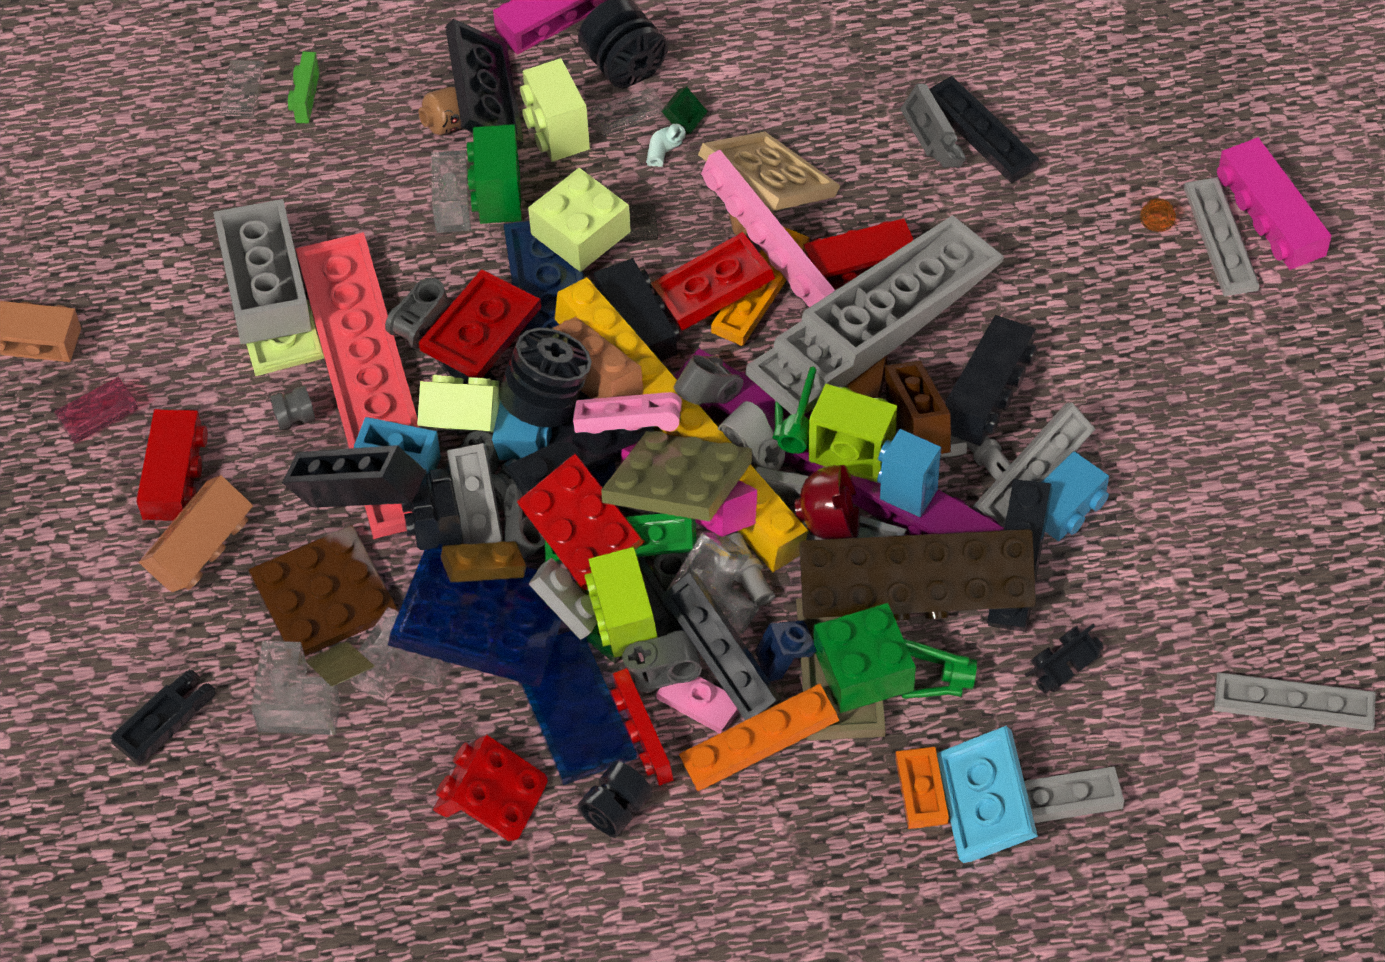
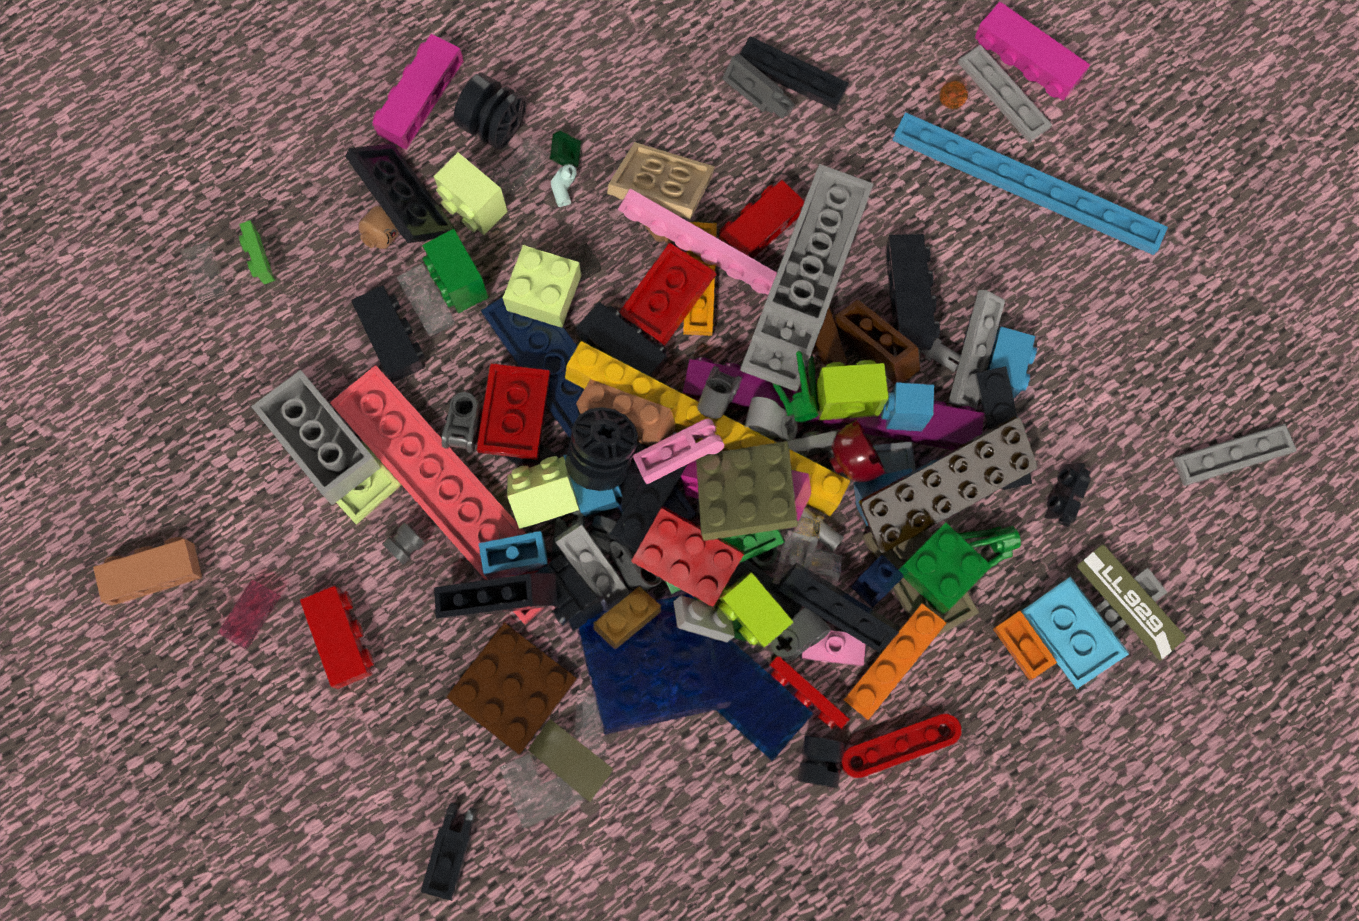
camera: 30 degrees left, 20 degrees up
(197, 535) = (392, 690): nougat brick -> none
(395, 210) = (389, 333): none -> black brick
(491, 787) = (724, 794): red bracket -> none
(717, 827) = (901, 746): none -> red plate
(1073, 793) = (1131, 602): none -> olive sticker
(1200, 335) = (1030, 184): none -> dark azure plate

